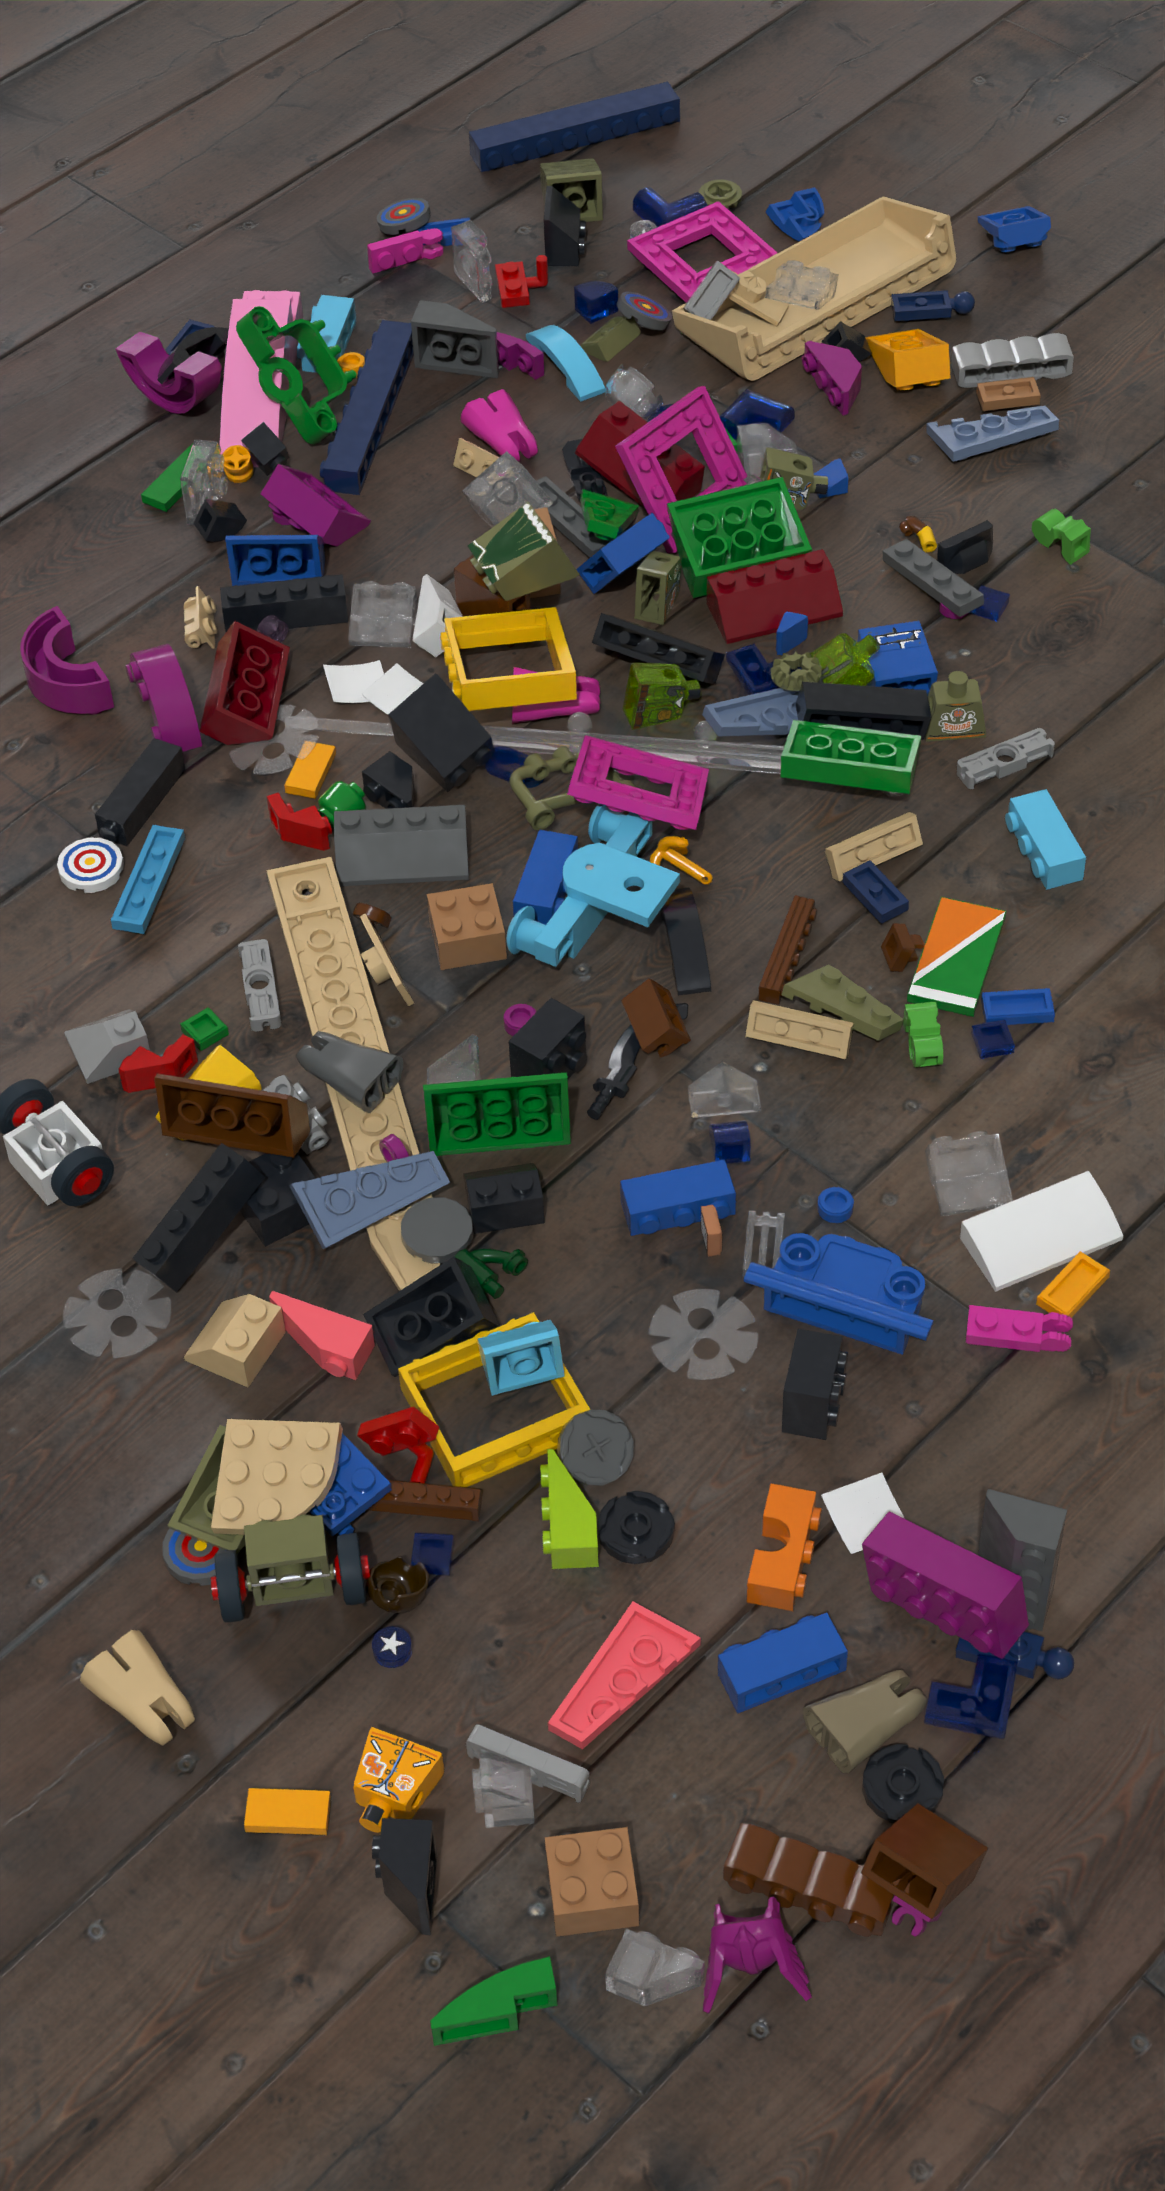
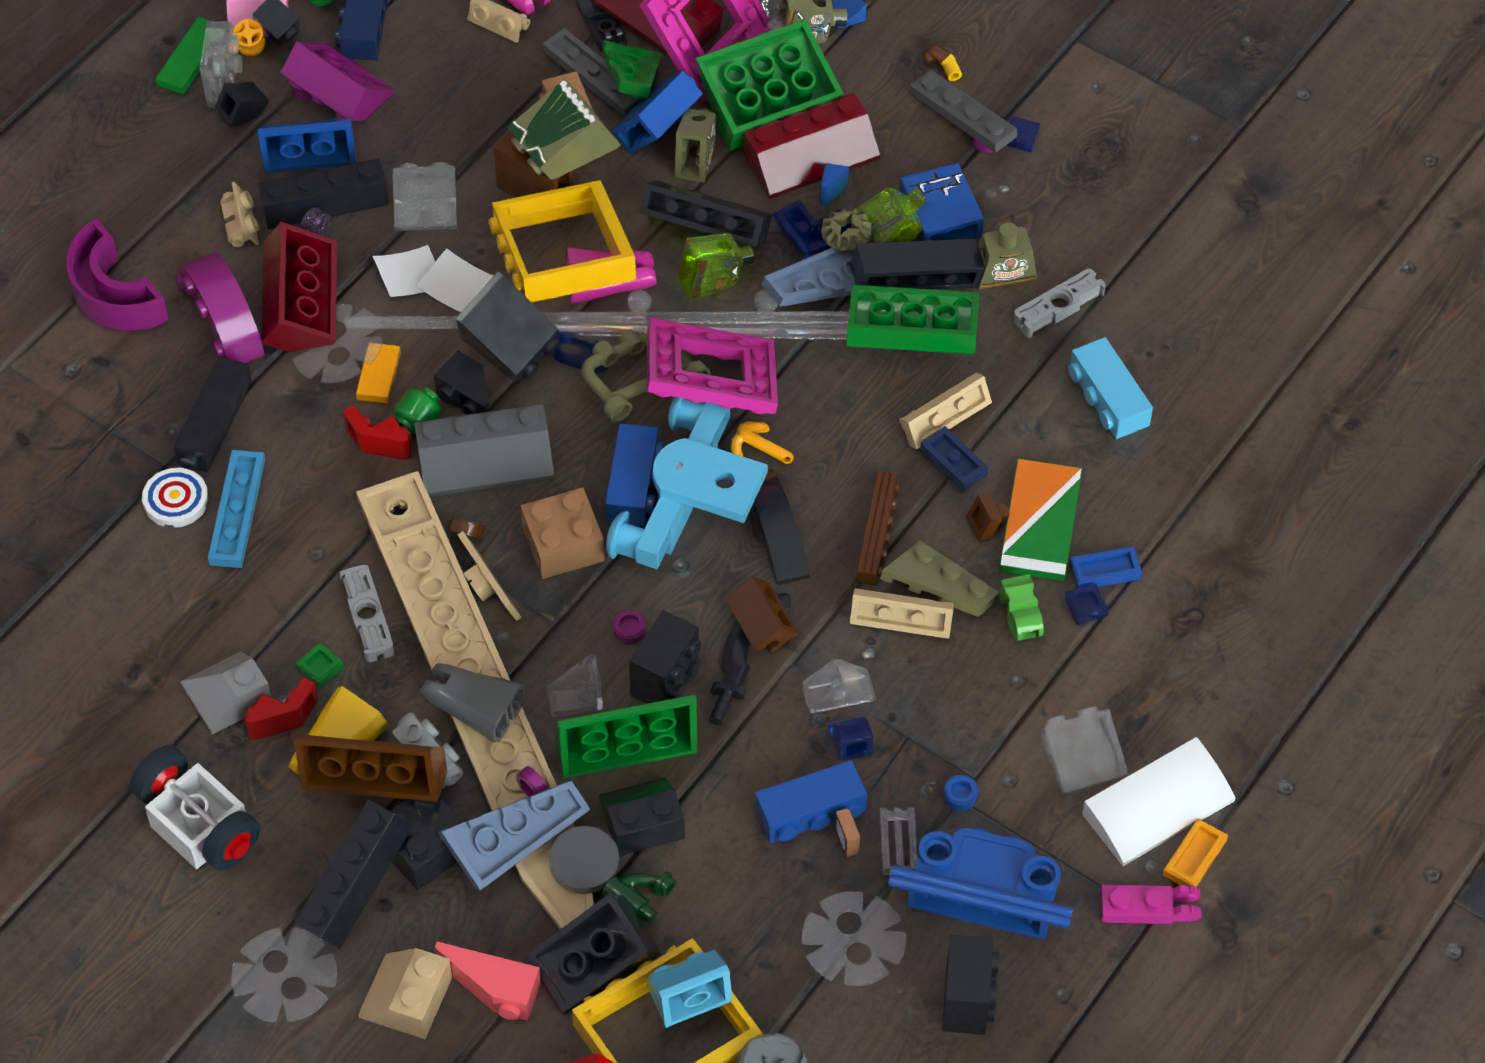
camera: 10 degrees left, 5 degrees up
(433, 607) = (476, 193): white slope -> none
(503, 490) = (529, 55): clear slope -> none
(967, 549) = (992, 77): black slope -> none
(1073, 533) = (1095, 53): bright green leg -> none

